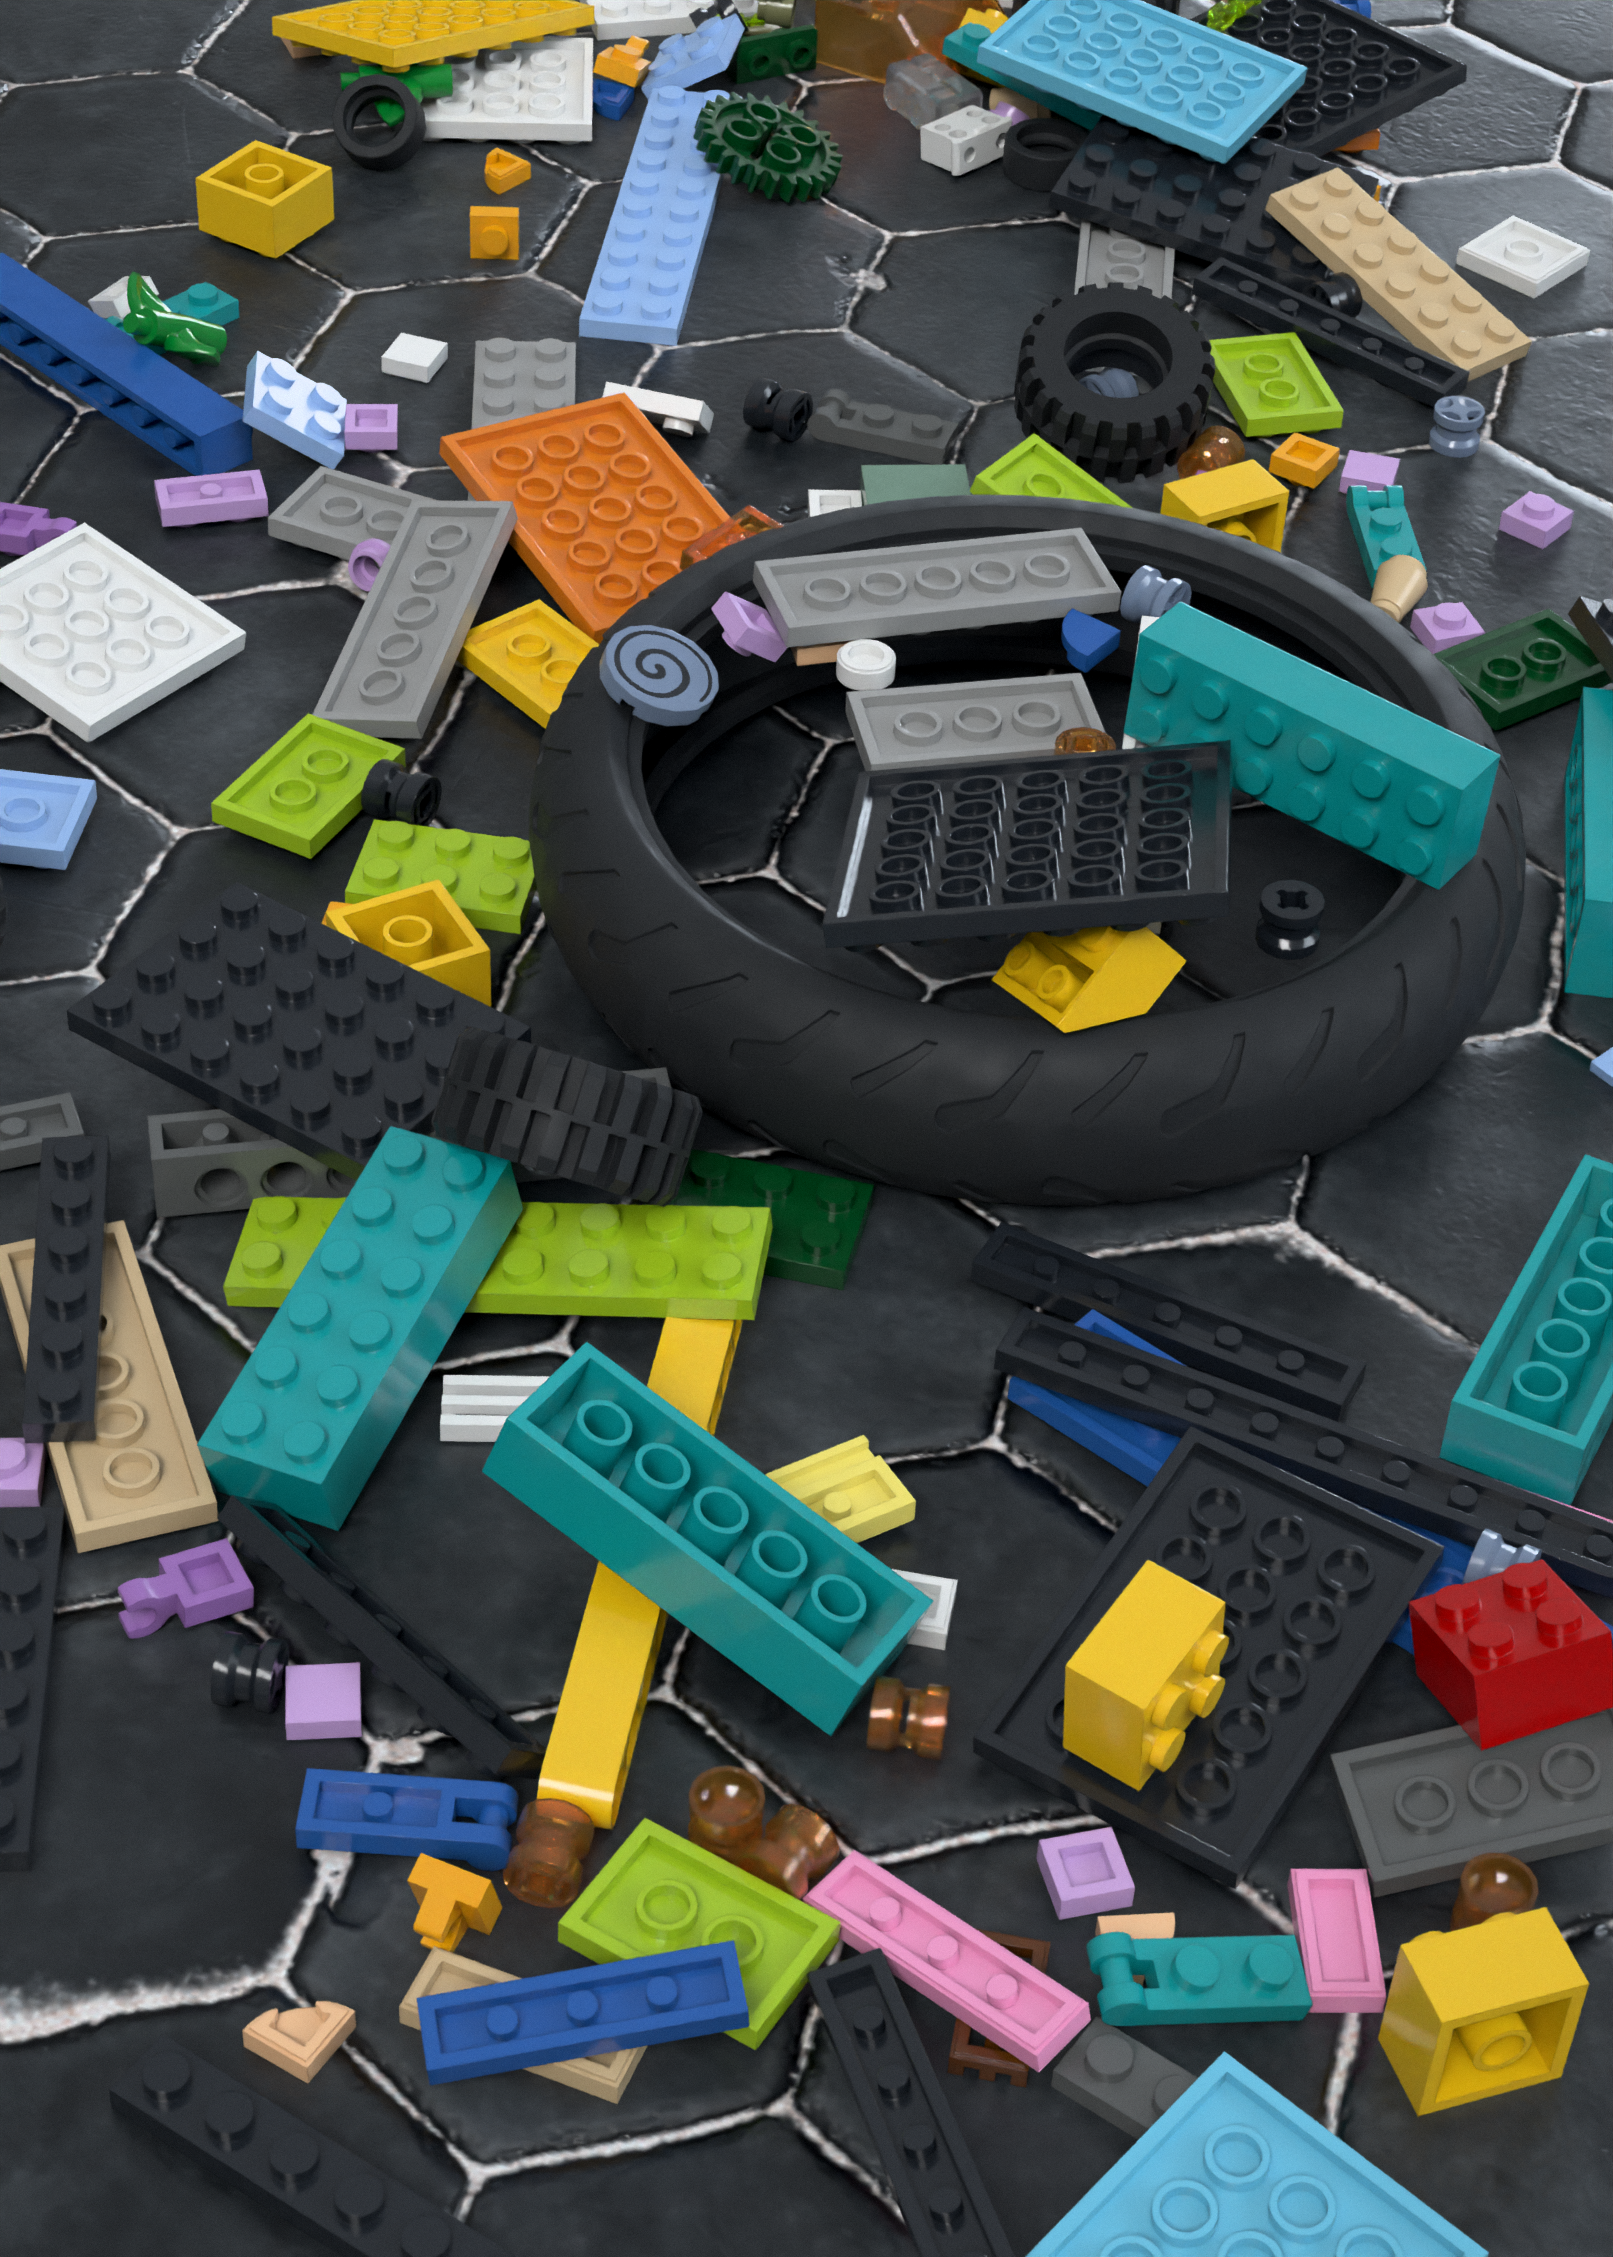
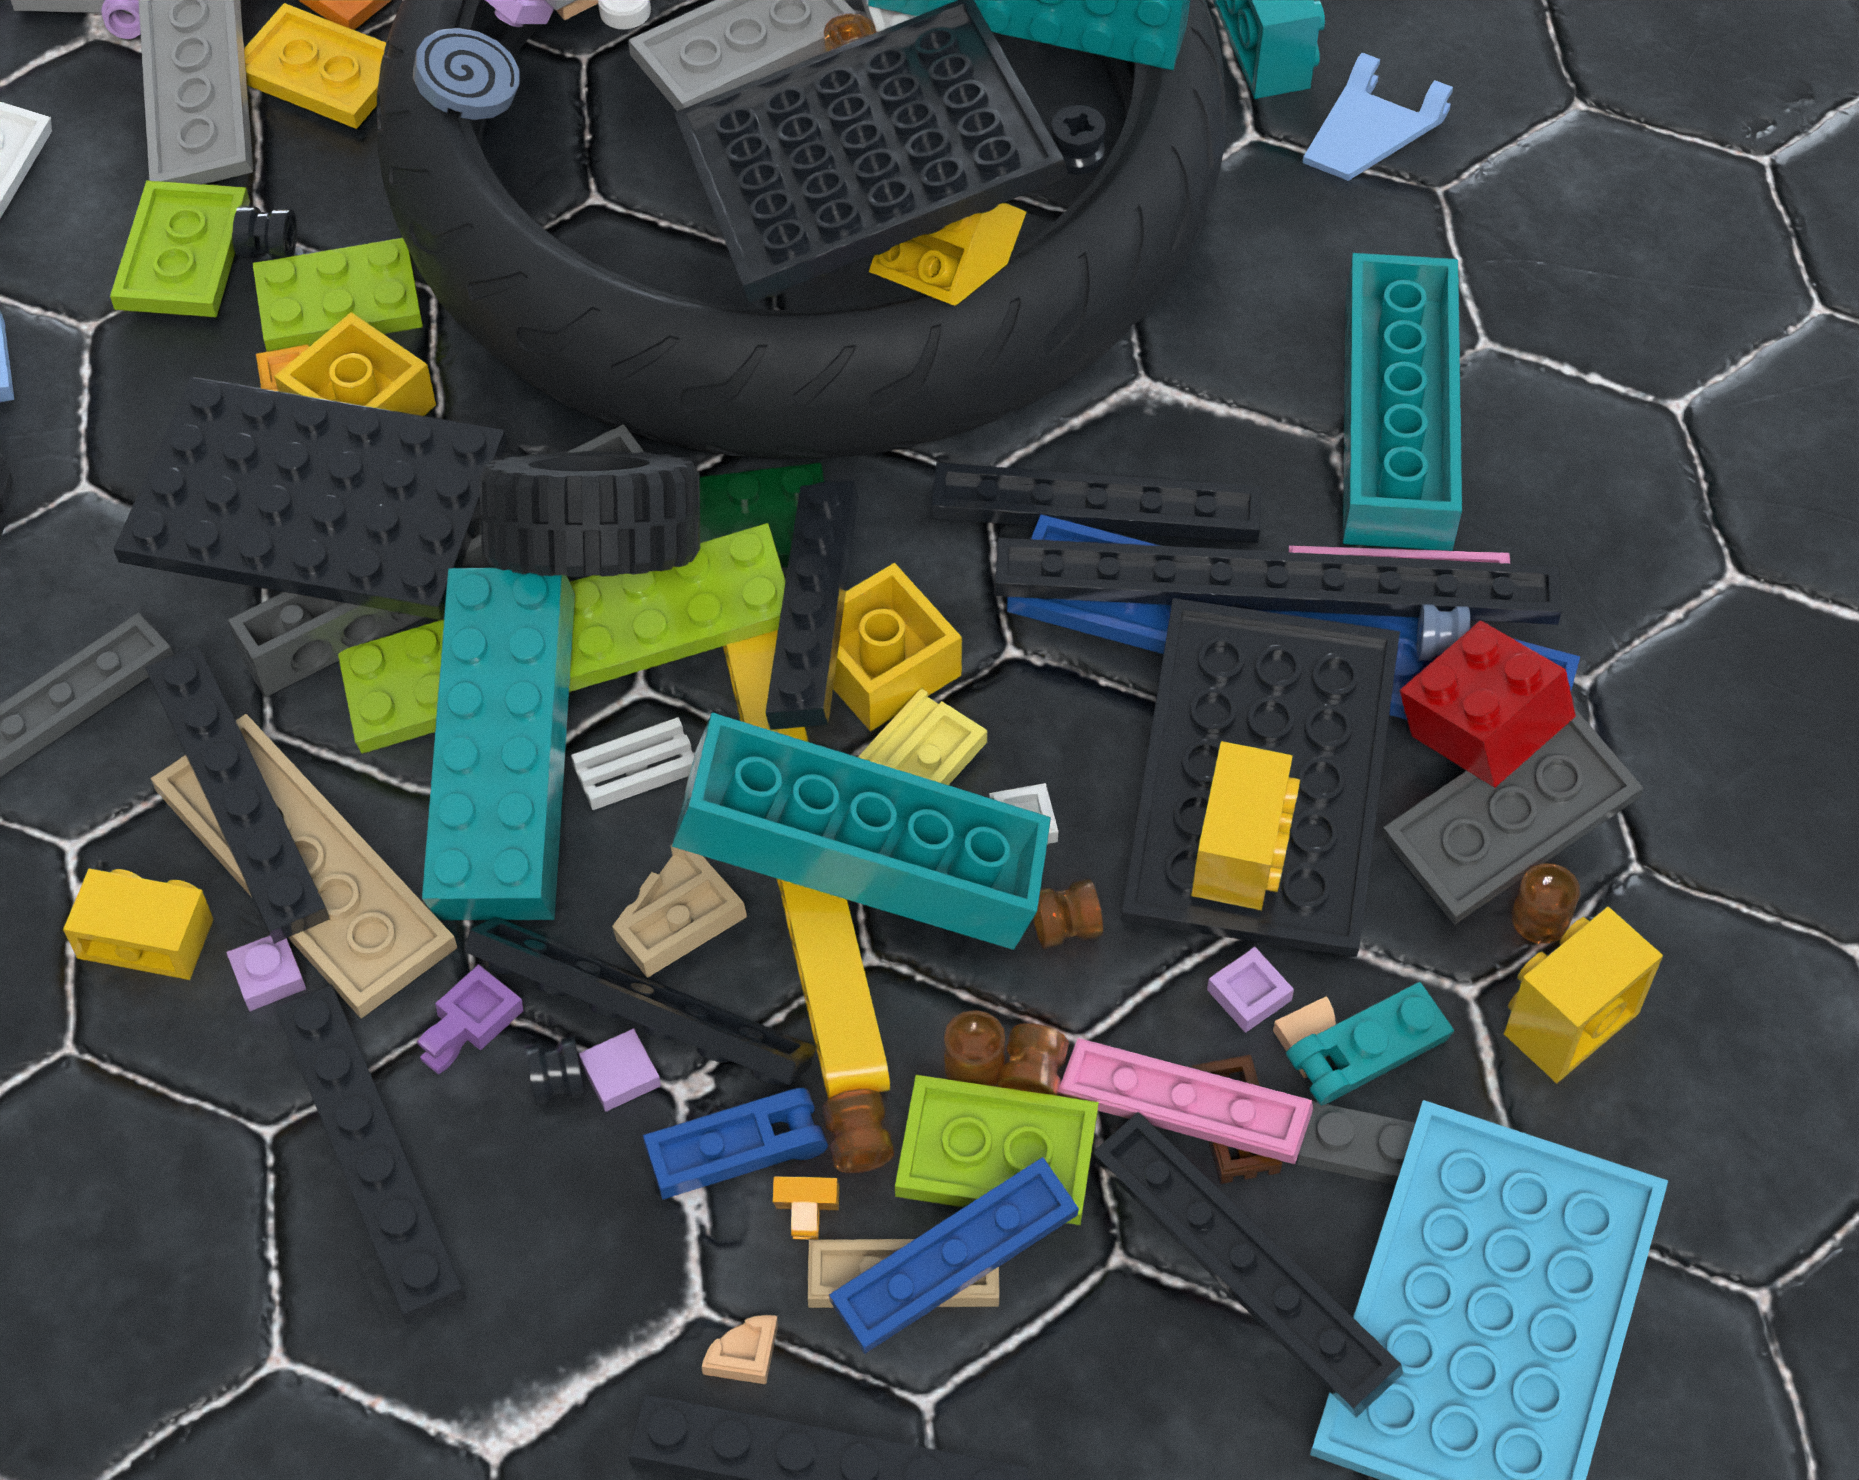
camera: 20 degrees left, 15 degrees up
(471, 1565) = (677, 912): none -> tan wing
(772, 1299) = (812, 606): none -> black plate
(839, 1374) = (892, 647): none -> yellow brick
(1337, 1940) = (1445, 967): bright pink tile -> none

